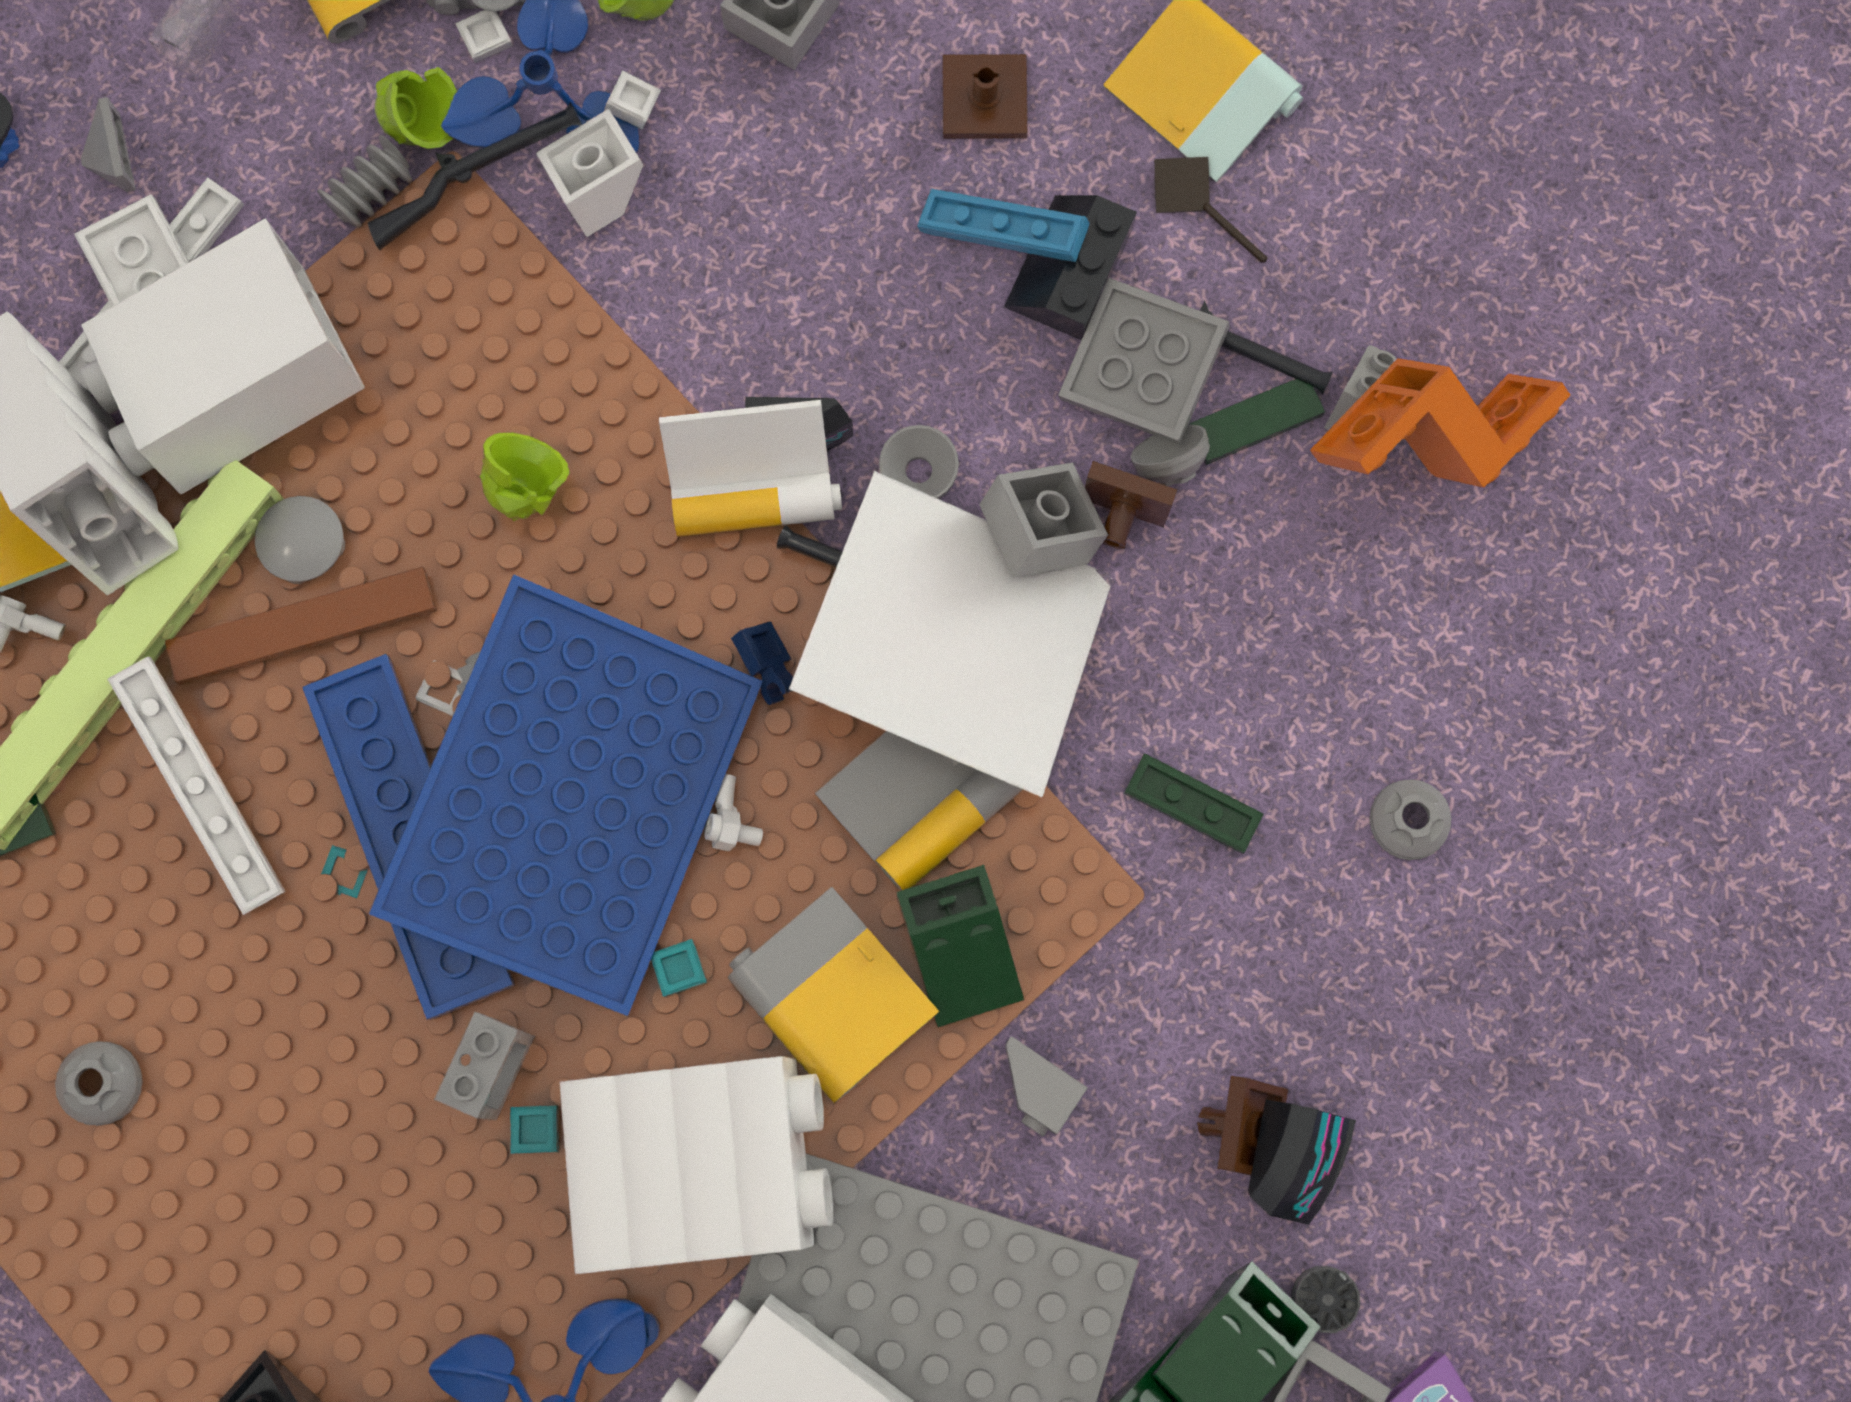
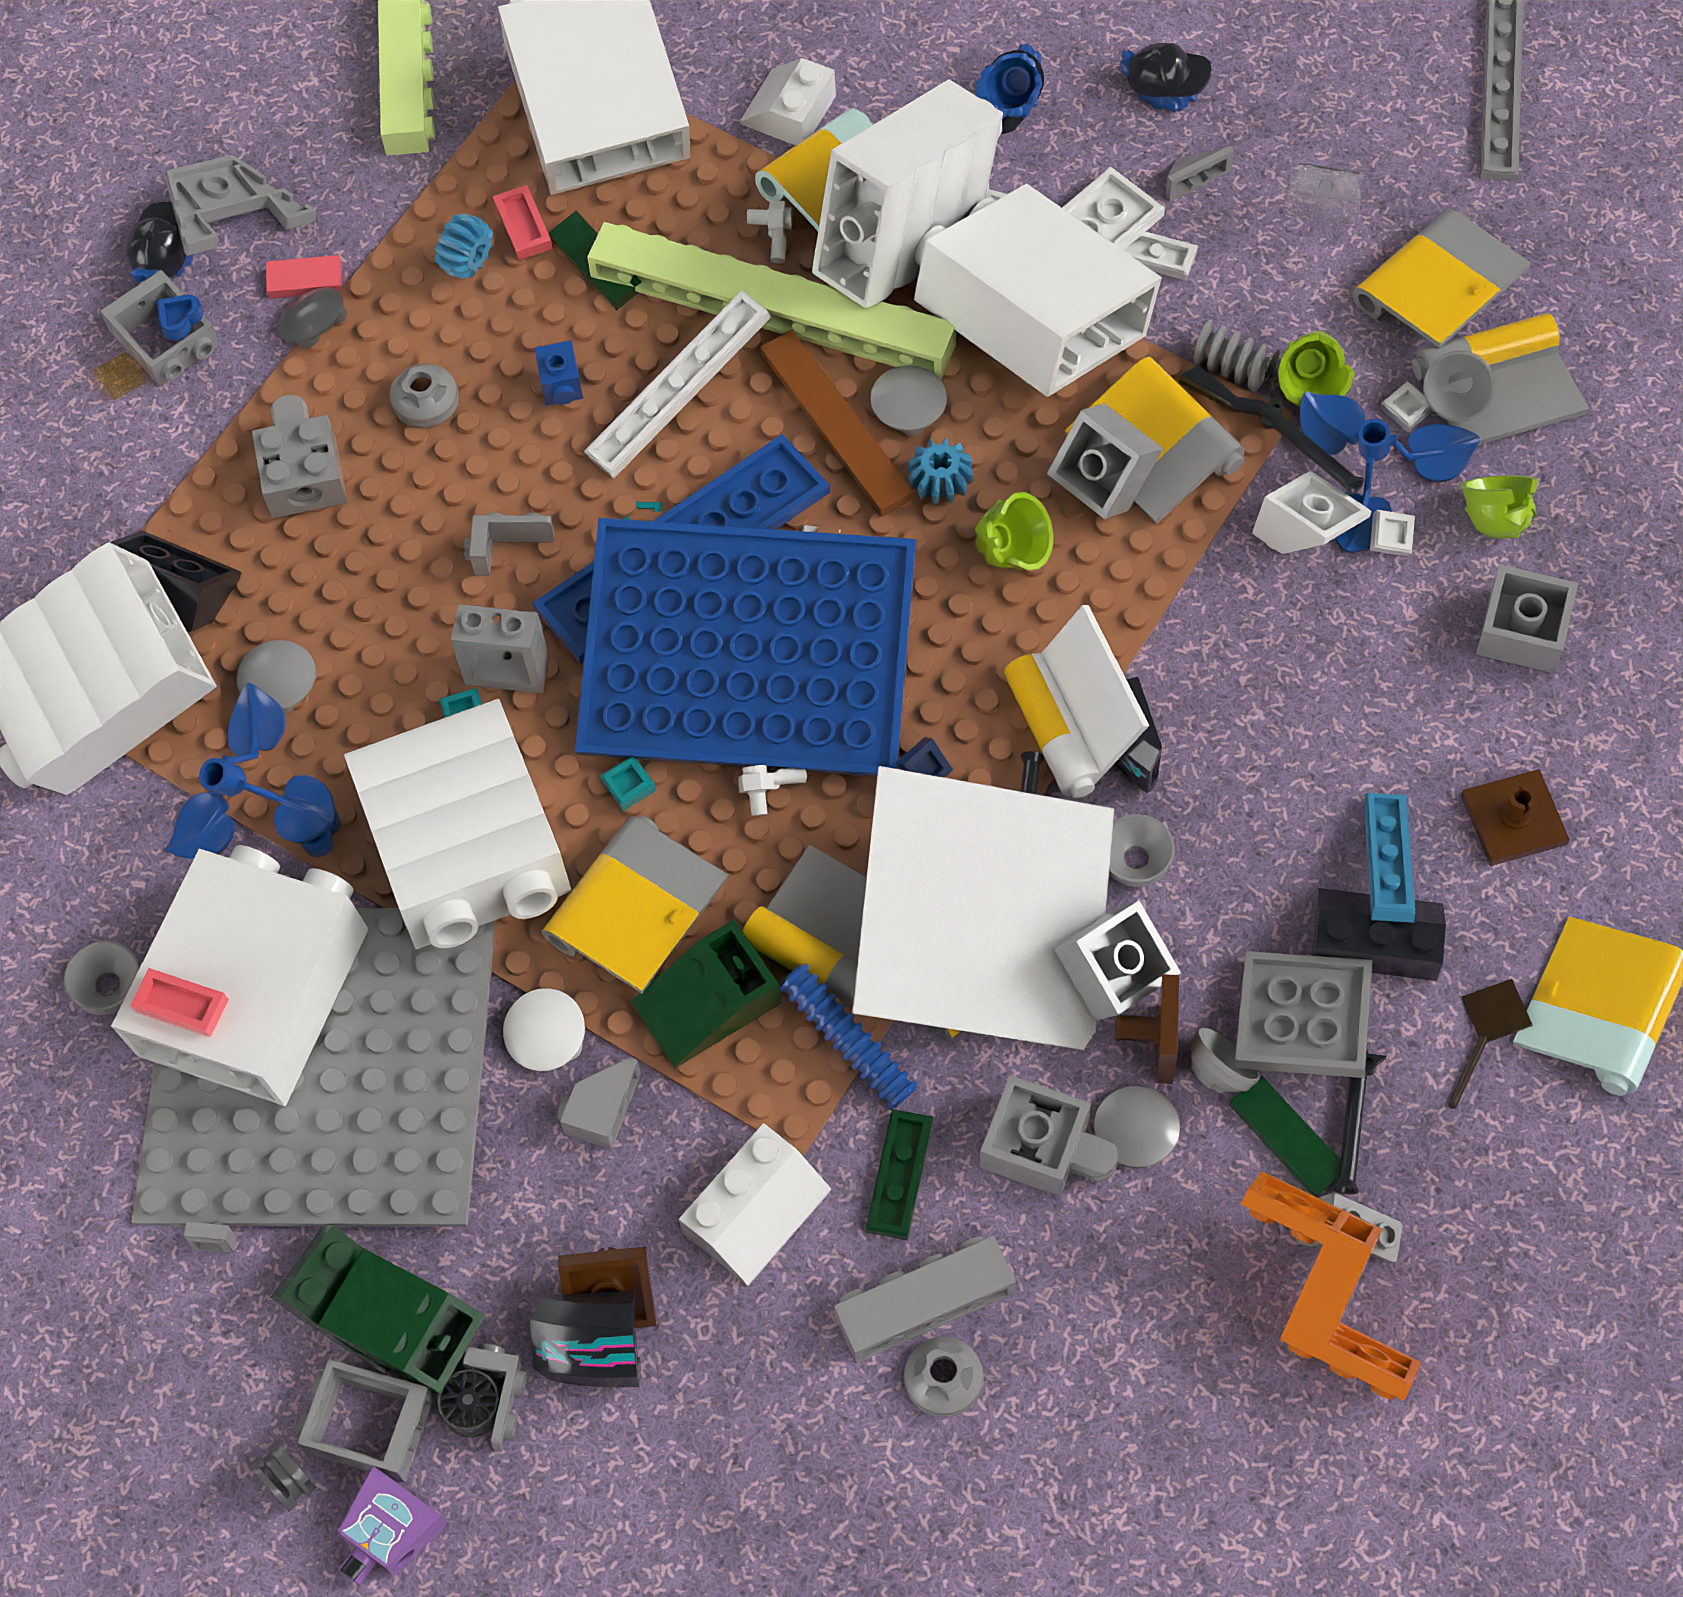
camera: 80 degrees right, 15 degrees down
(131, 918) = (558, 373): none -> blue brick
(139, 1250) = (298, 460): none -> light grey brick
(311, 1036) = (503, 528): none -> light grey bracket
(392, 536) = (940, 471): none -> dark azure gear
(415, 1331) = (280, 671): none -> light grey dish
(445, 296) = (1189, 436): none -> door
(466, 352) = (1104, 460): none -> light grey brick
(938, 1127) = (544, 1030): none -> white dish
(1044, 812) = (848, 1036): none -> blue piece
(1192, 957) = (754, 1204): none -> white slope
(1206, 649) = (1043, 1138): none -> light grey brick
(1207, 558) = (1139, 1124): none -> light grey dish
(1291, 1265) = (505, 1367): none -> light grey bracket
(1334, 814) = (924, 1297): none -> light grey brick

